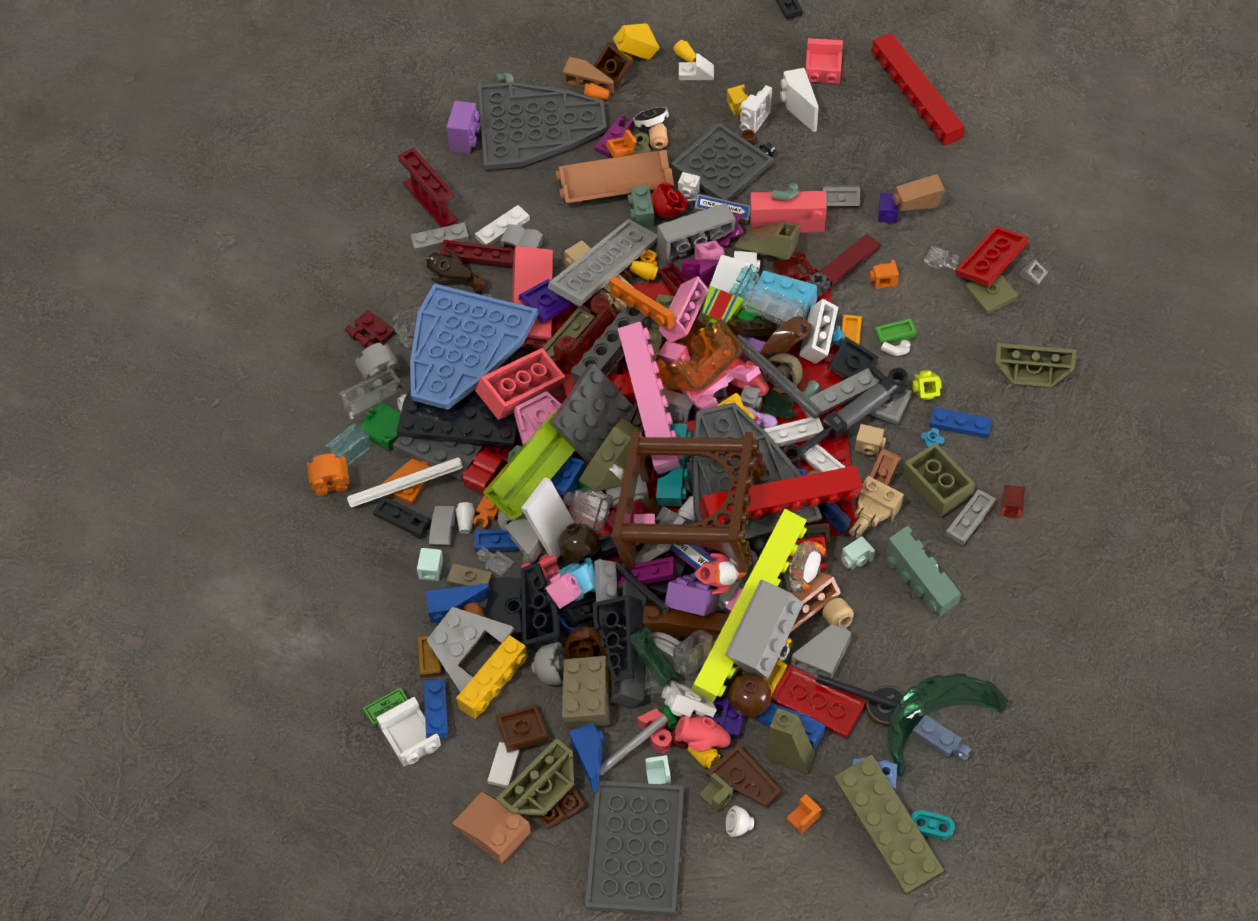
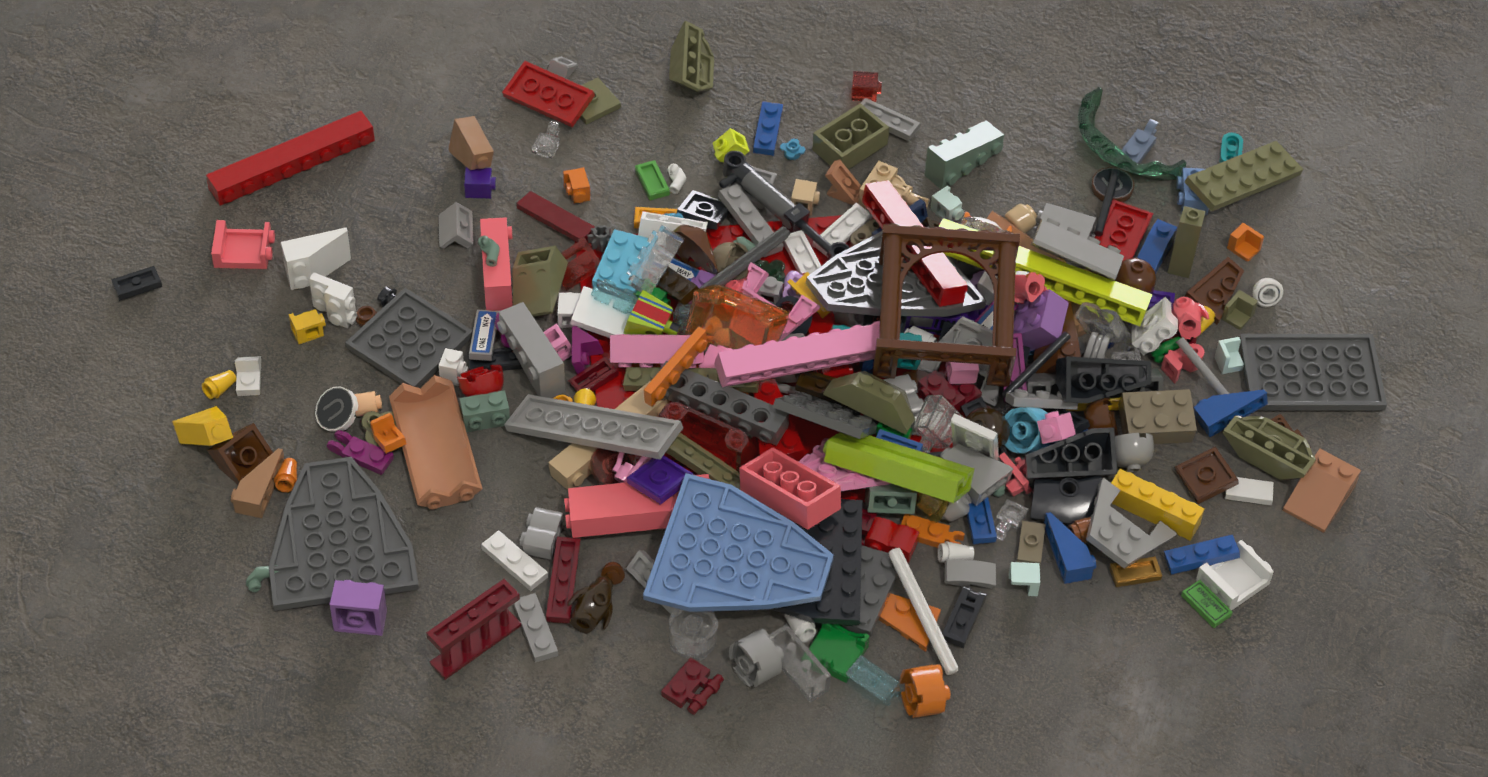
camera: 100 degrees left, 5 degrees down
(652, 656) = (1118, 348): clear green plate -> none

